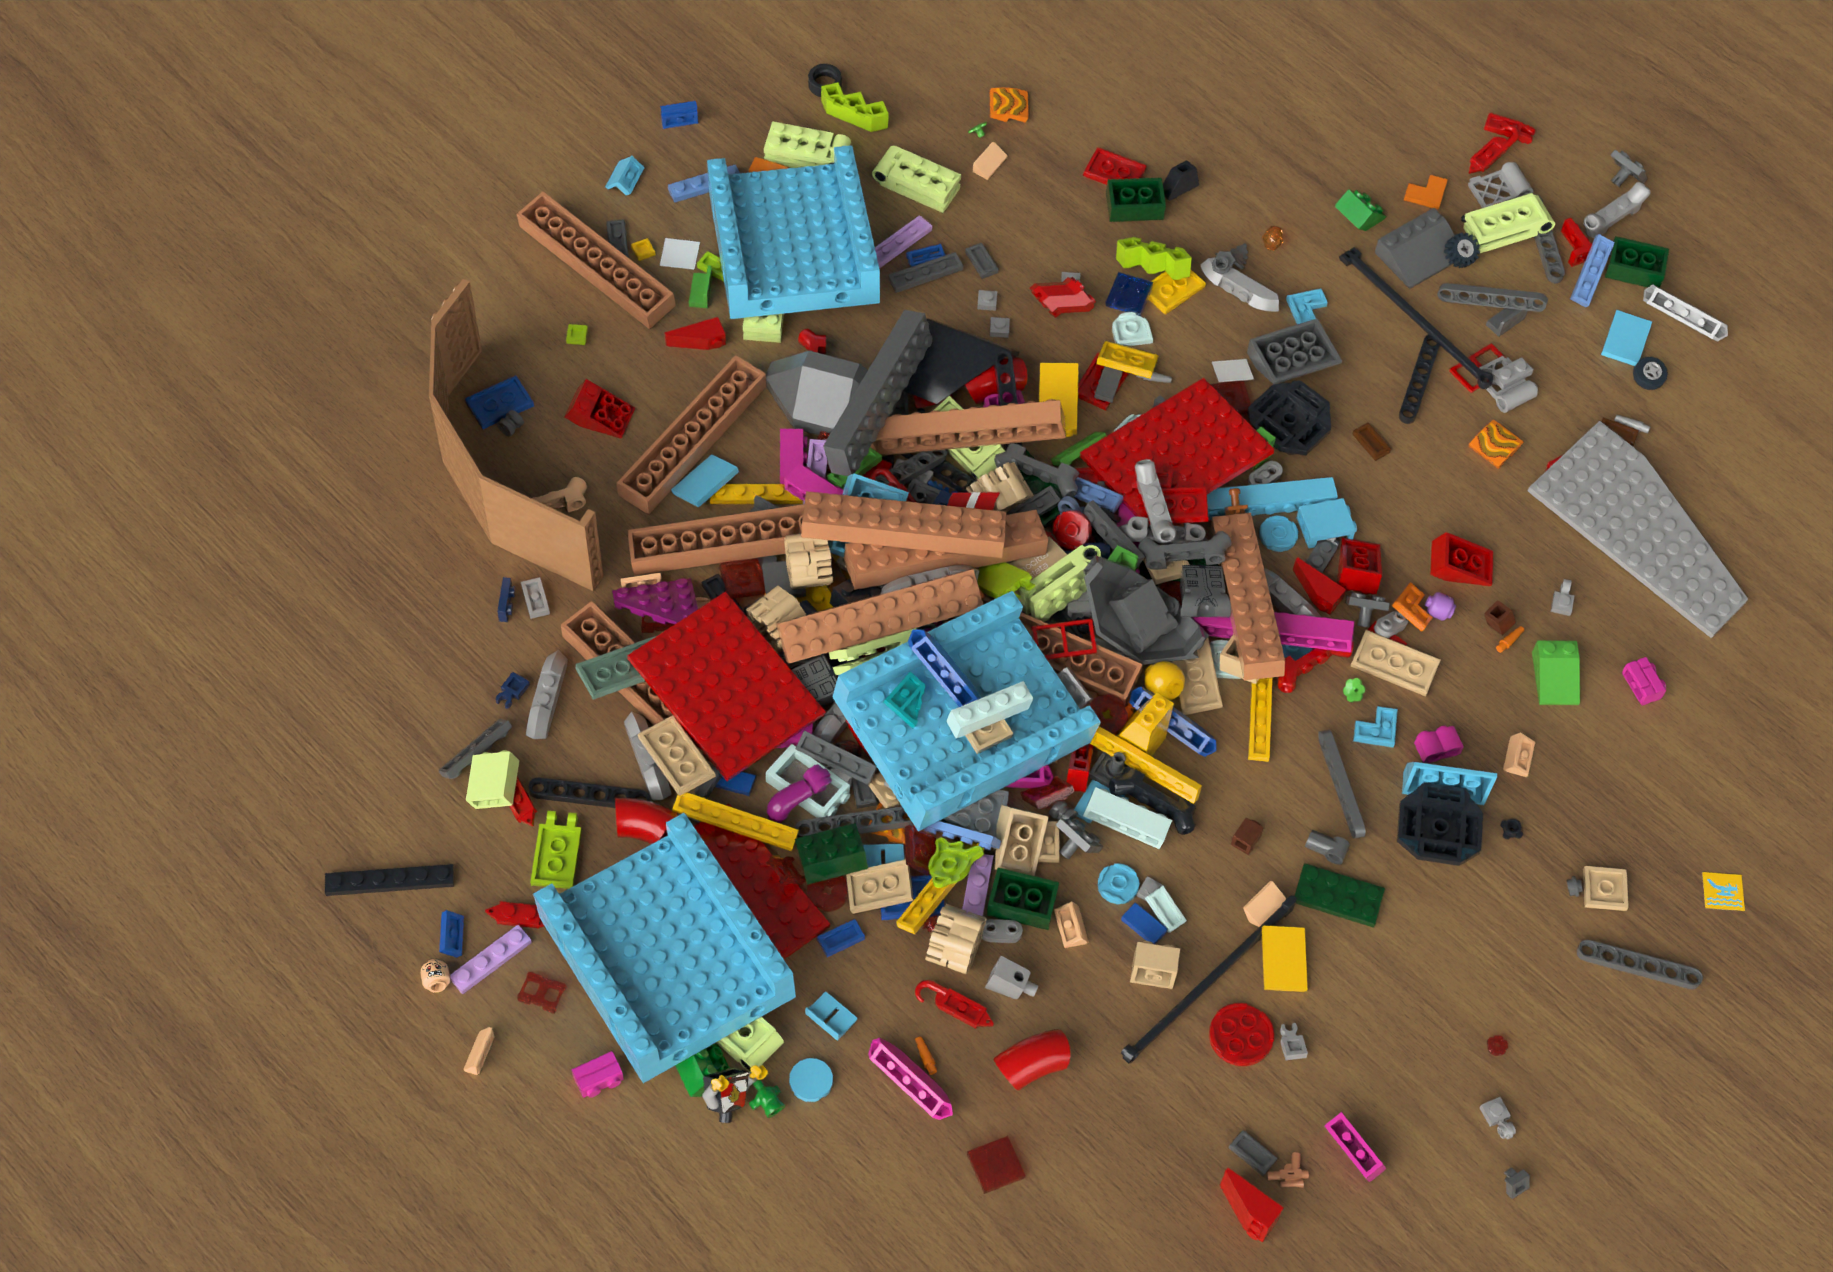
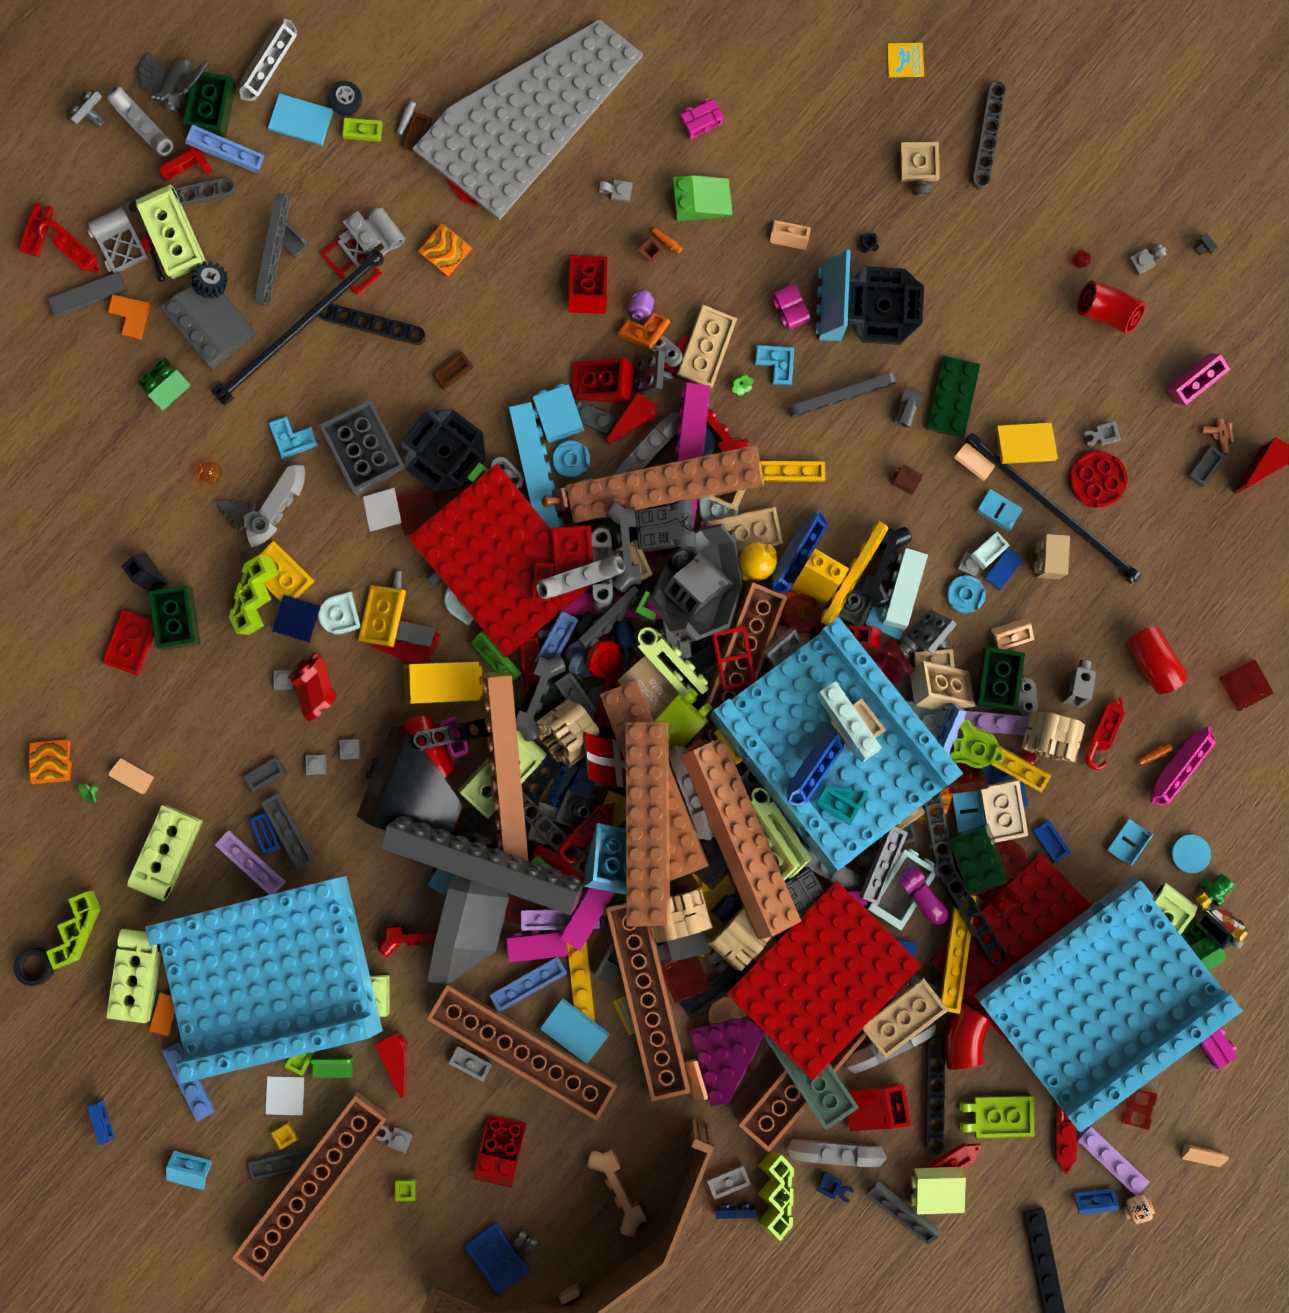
camera: 90 degrees left, 25 degrees up
(515, 634) = (778, 1195): none -> lime brick
(586, 737) = (879, 1108): none -> red slope
(626, 334) = (398, 1138): none -> light grey plate
(686, 394) = (470, 1063): none -> light grey plate
(756, 448) = (528, 984): none -> medium blue plate
(777, 838) = (973, 910): none -> black beam
(1216, 918) = (1008, 514): none -> medium azure piece
(1438, 1063) = (1110, 306): none -> red brick
(1447, 162) = (87, 294): none -> dark grey tile
(1618, 385) = (362, 129): none -> lime plate
(1659, 231) = (168, 84): none -> dark grey animal

